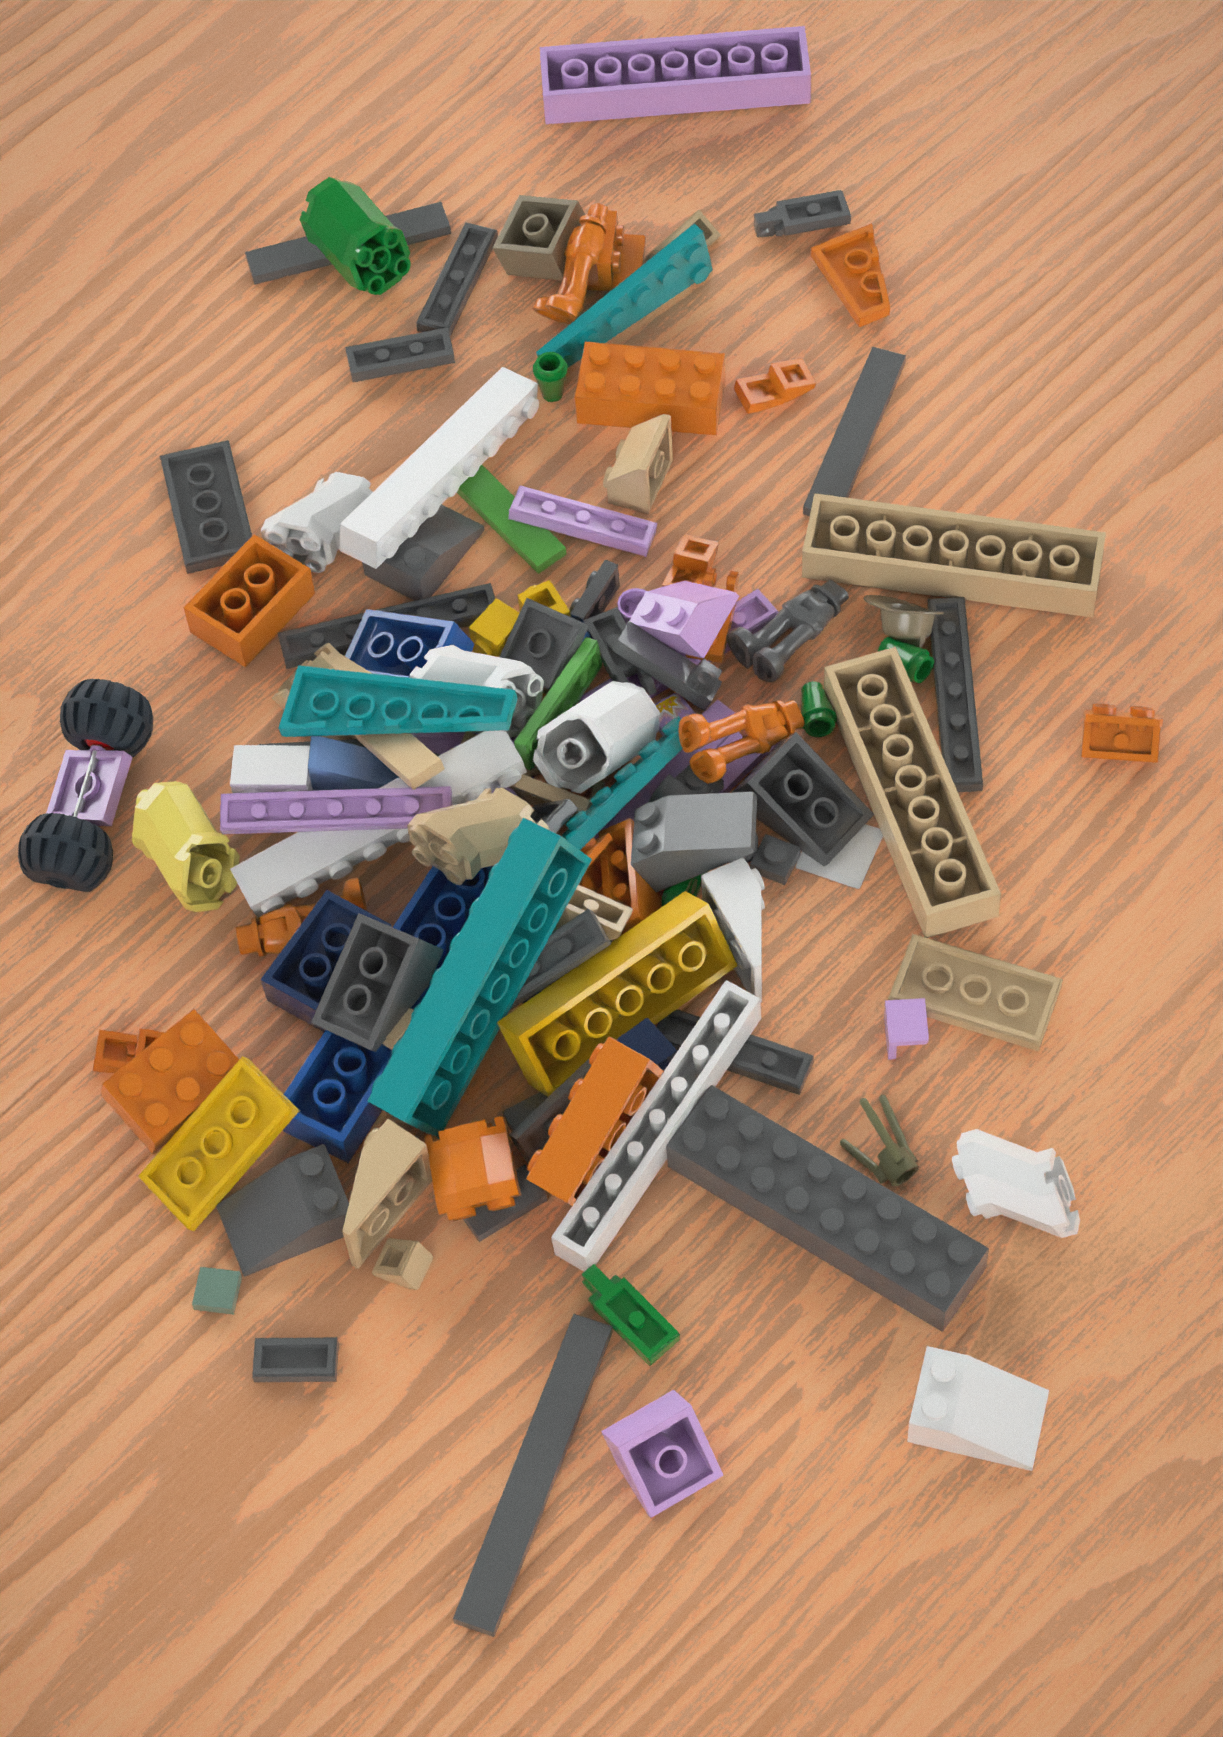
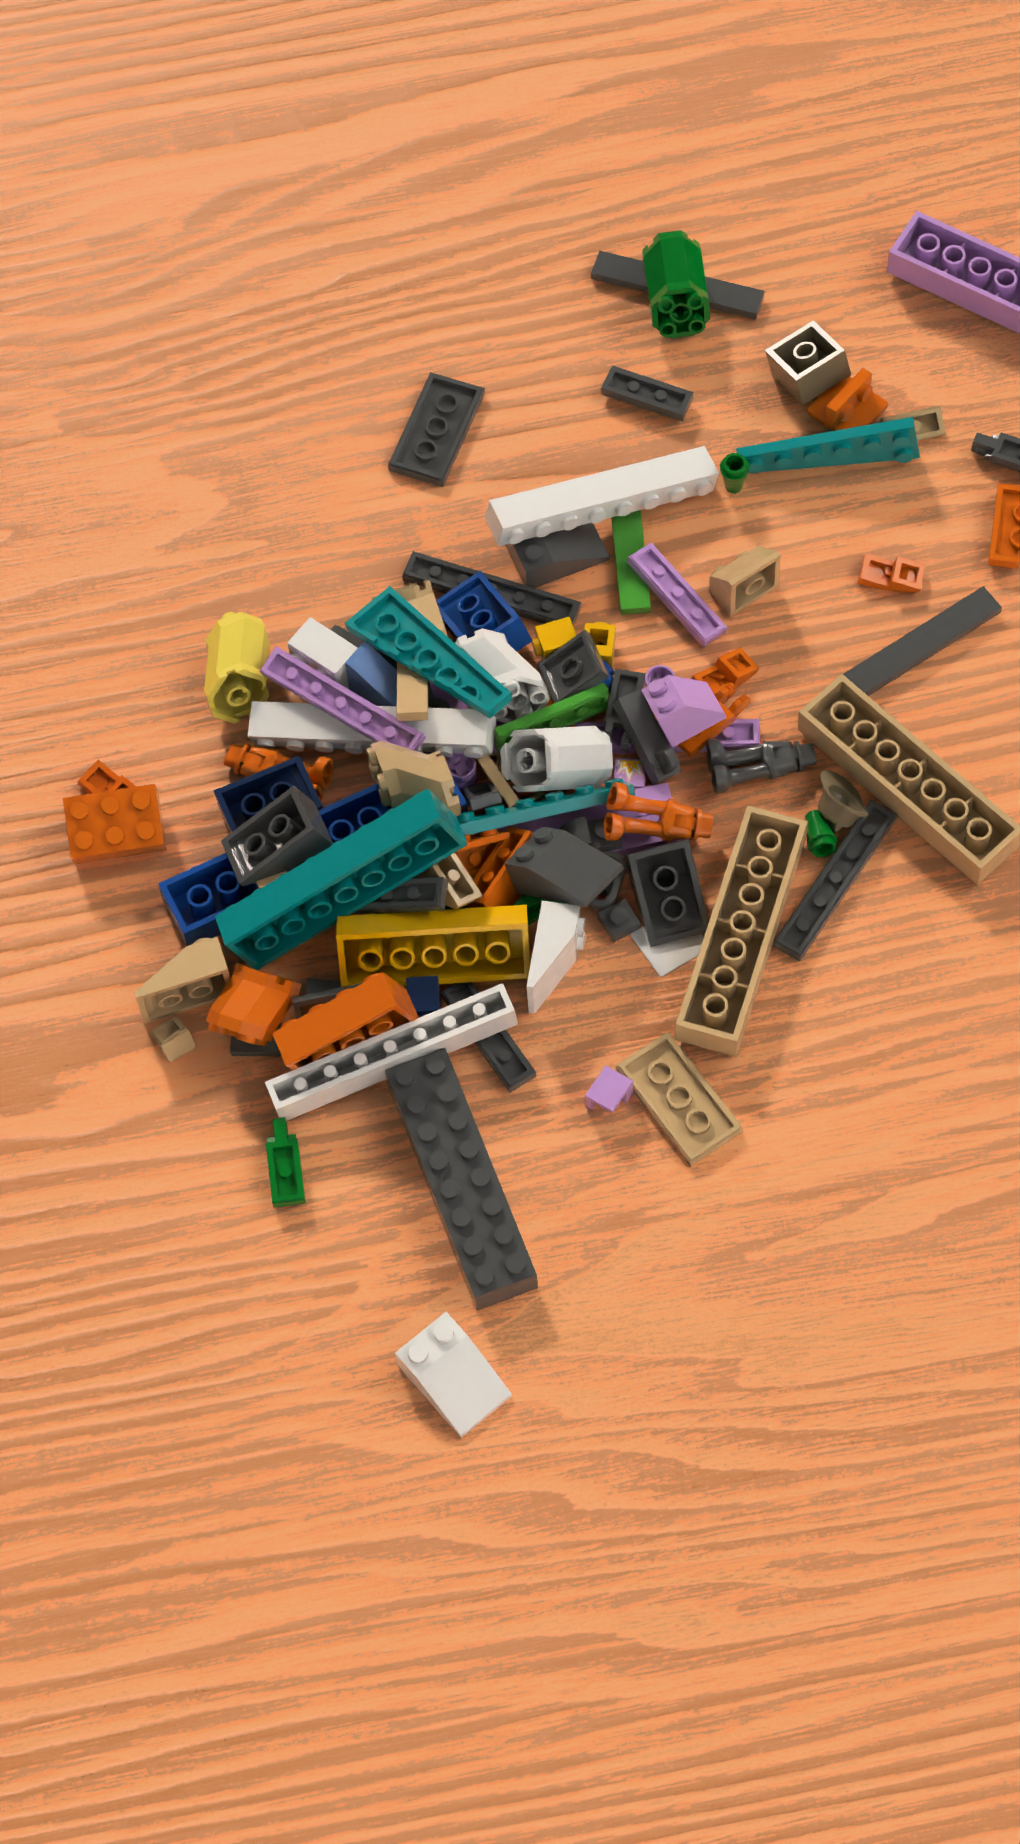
camera: 35 degrees right, 5 degrees up
(108, 728) = (248, 548): black plate -> none
(217, 1290) = (47, 980): sand green tile -> none
(218, 1143) = (111, 884): yellow tile -> none
(249, 600) = (407, 516): orange brick -> none
(285, 1211) = (123, 954): dark grey slope -> none
(295, 1359) = (62, 1057): dark grey tile -> none
(312, 525) = (478, 483): white brick -> none
(457, 278) = (730, 358): dark grey tile -> none
(533, 1476) = (150, 1227): dark grey tile -> none
(581, 253) = (820, 392): orange piece -> none
(598, 593) = (647, 654): dark grey plate -> none
(639, 383) = (798, 523): orange brick -> none
(663, 1452) = (235, 1268): lavender slope -> none
(817, 710) = (726, 832): green cone -> none
(896, 1160) = (531, 1179): olive plant -> none
(1016, 1183) = (592, 1244): white brick -> none
(1121, 734) = (924, 980): orange bracket -> none

